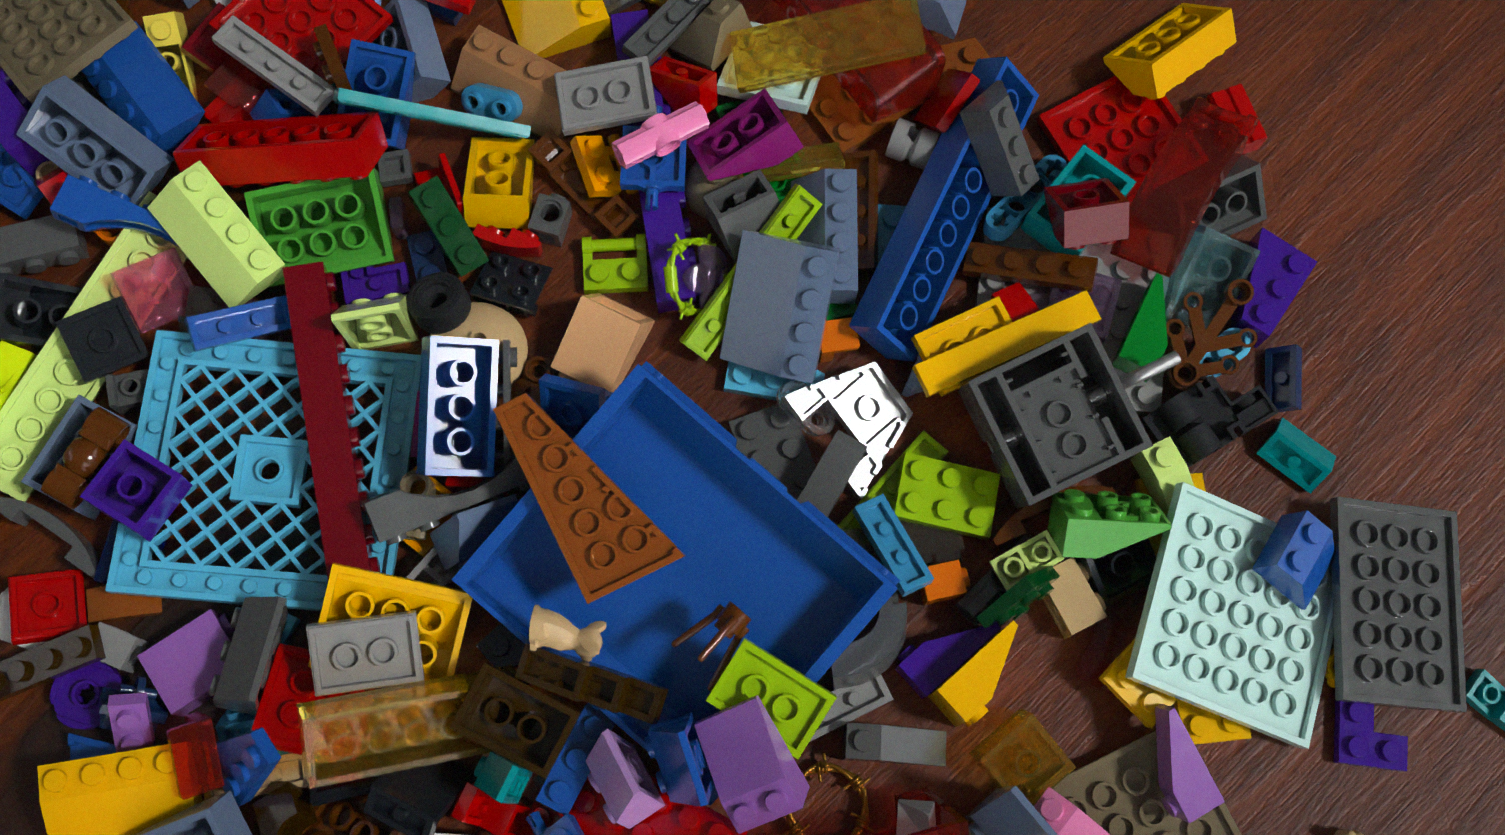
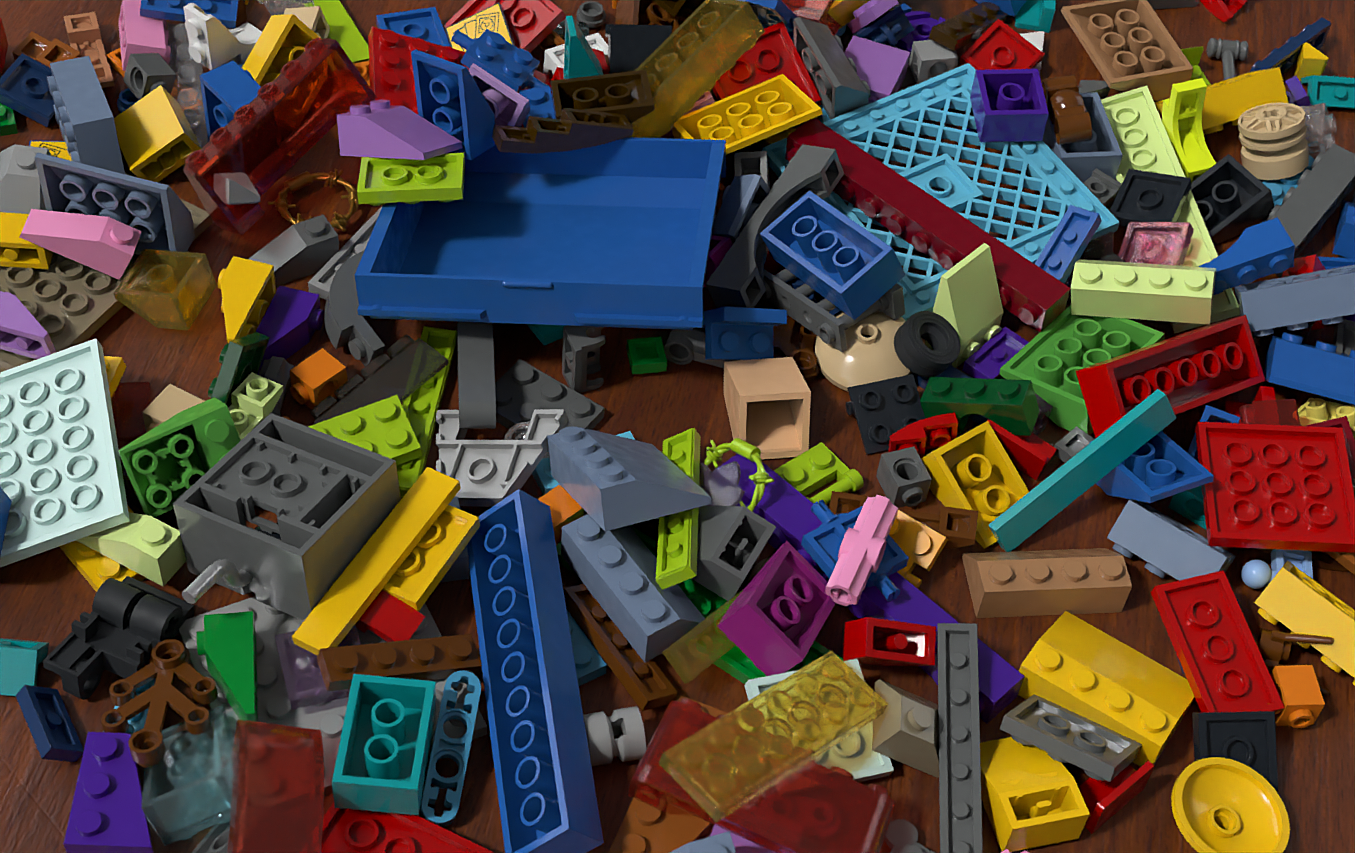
camera: 145 degrees right, 25 degrees down
(274, 65) = (1249, 419): light grey plate -> none
(327, 51) = (1207, 445): reddish brown plate -> none
(365, 653) = (748, 95): light grey tile -> none
(489, 102) = (1041, 543): dark azure plate -> none
(557, 632) = (626, 132): tan animal -> none
(593, 520) = (649, 193): dark orange wing -> none
(605, 95) = (948, 571): light grey tile -> none
(730, 622) = (481, 194): reddish brown plant -> none
(893, 544) = (382, 367): dark azure plate -> none
(947, 100) = (606, 782): red tile -> none
(999, 142) = (511, 748): dark grey slope -> none
(1087, 213) = (371, 698): dark red slope -> none

